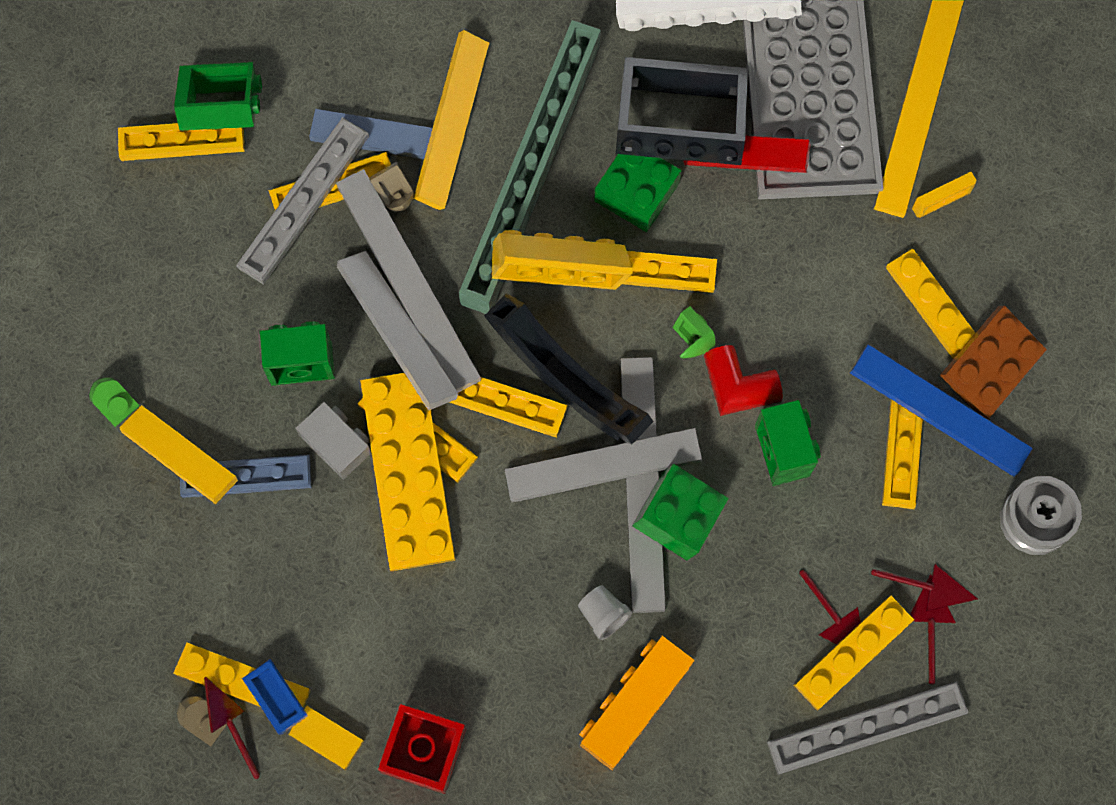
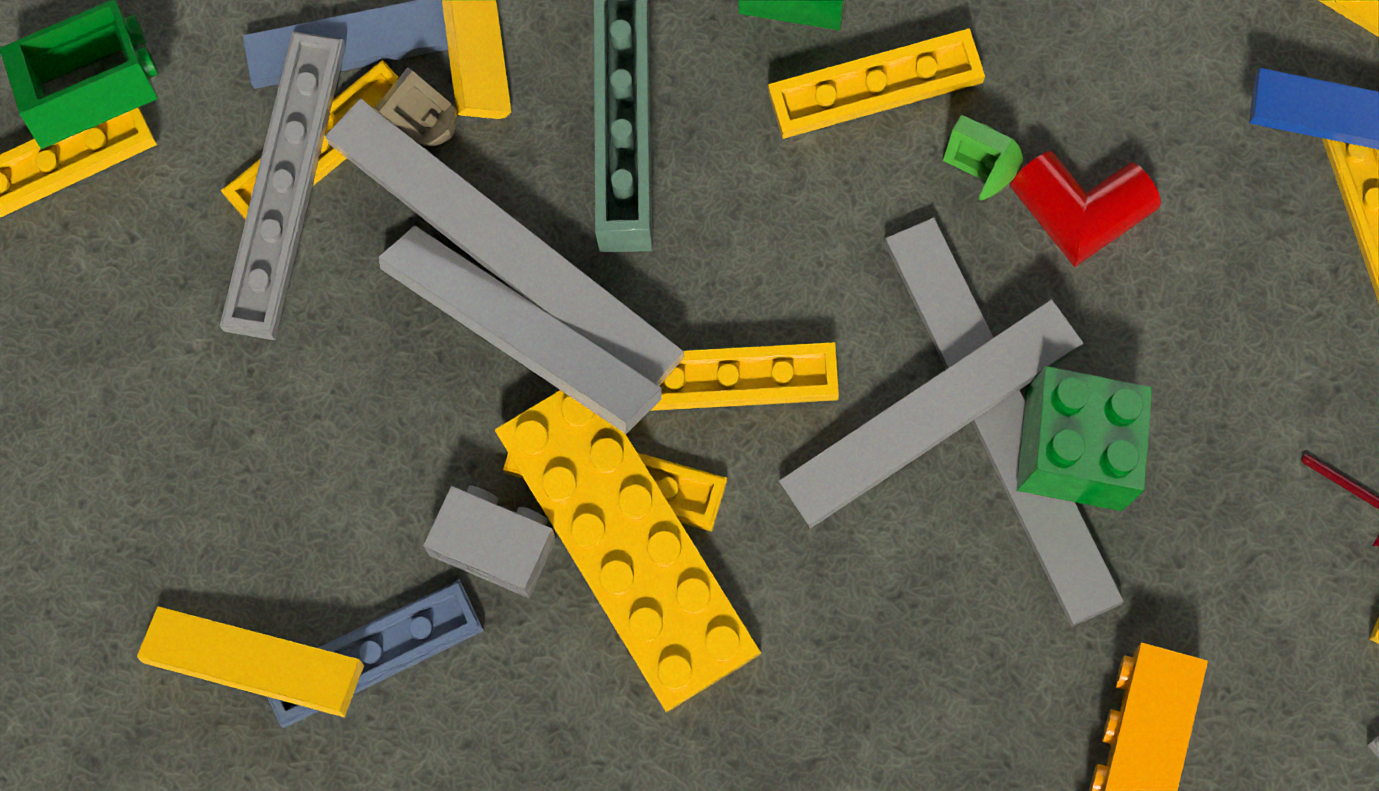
camera: 15 degrees left, 0 degrees up
(112, 400) = (106, 617): bright green plate -> none
(297, 353) = (377, 426): green brick -> none
(560, 260) = (734, 120): yellow slope -> none
(563, 374) = (814, 300): black arch -> none
(604, 612) = (1031, 642): light grey piece -> none
(787, 442) = (1203, 266): green brick -> none

